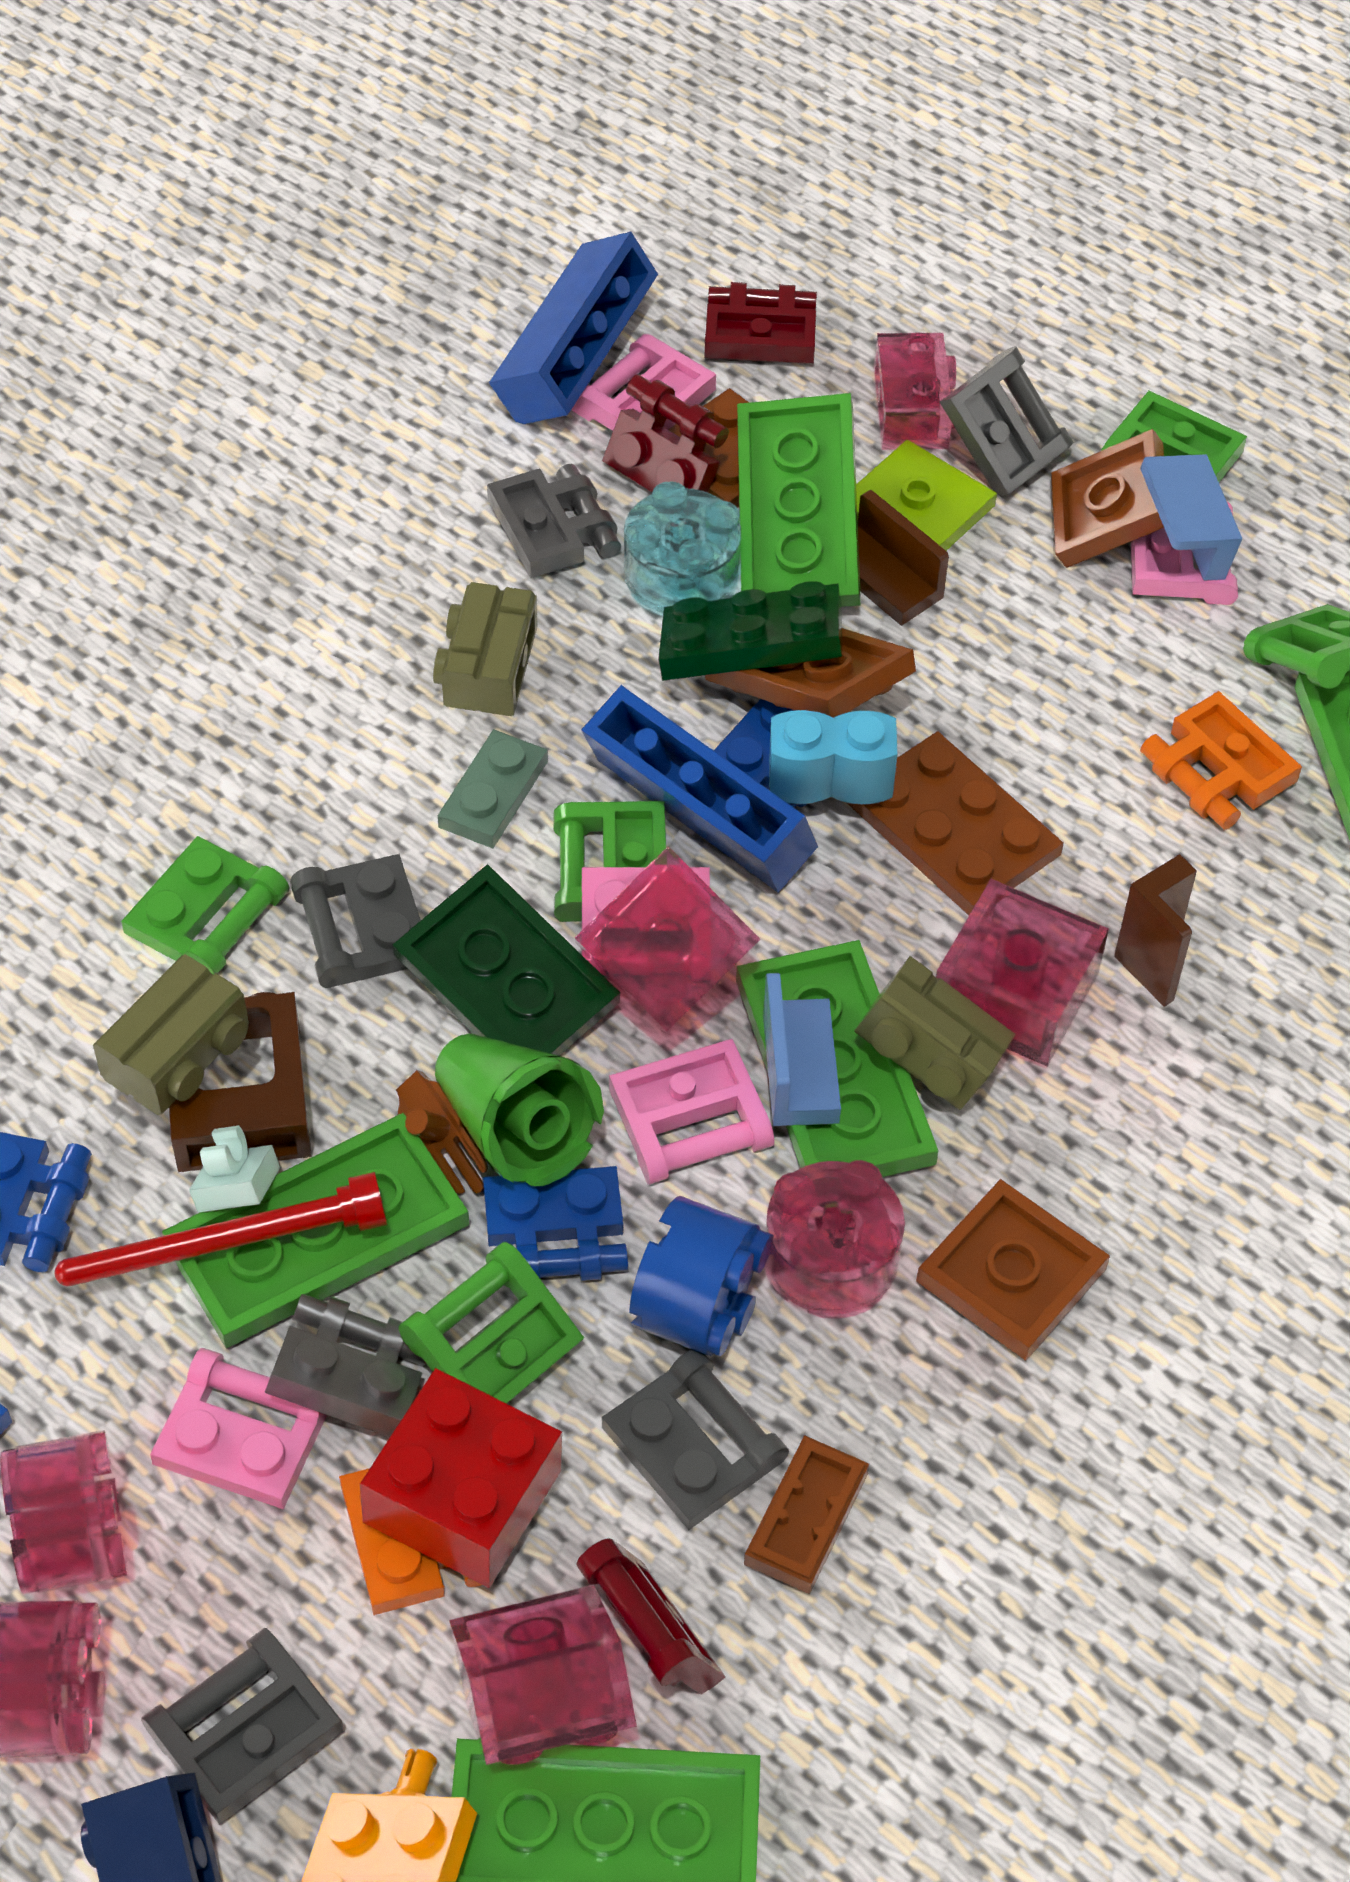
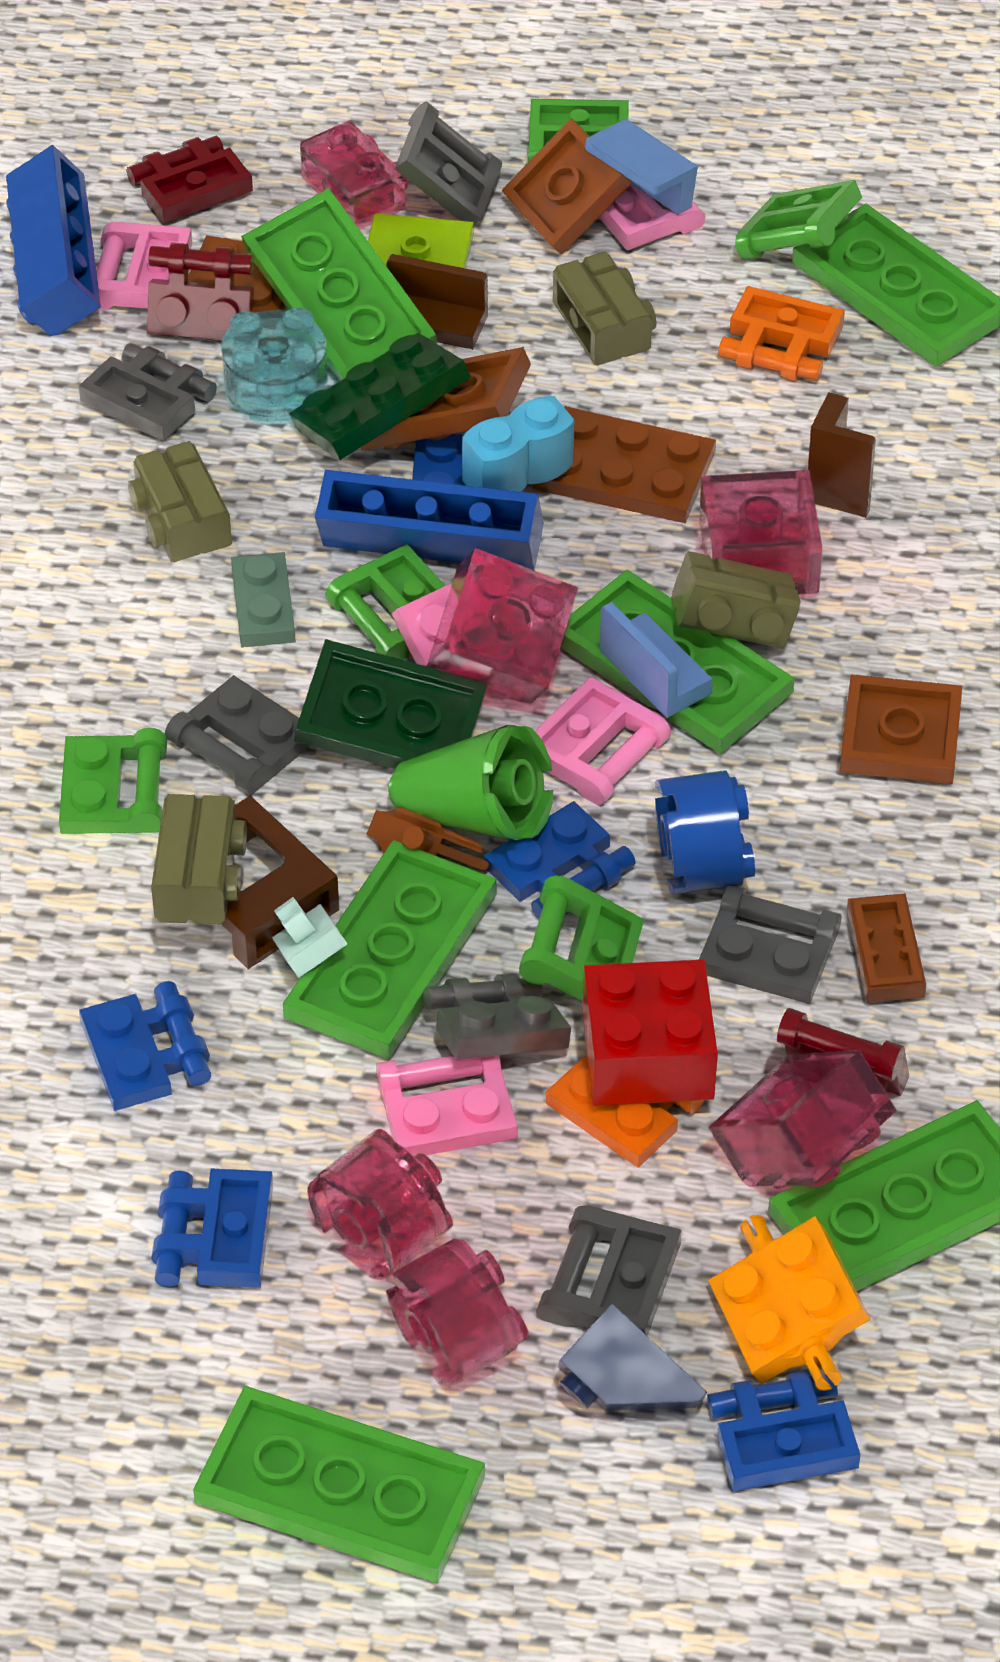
camera: 30 degrees left, 5 degrees down
(354, 1205) = (421, 906): red piece -> none
(834, 1238) = (777, 759): clear pink brick -> none
(1053, 645) = (603, 308): none -> olive brick

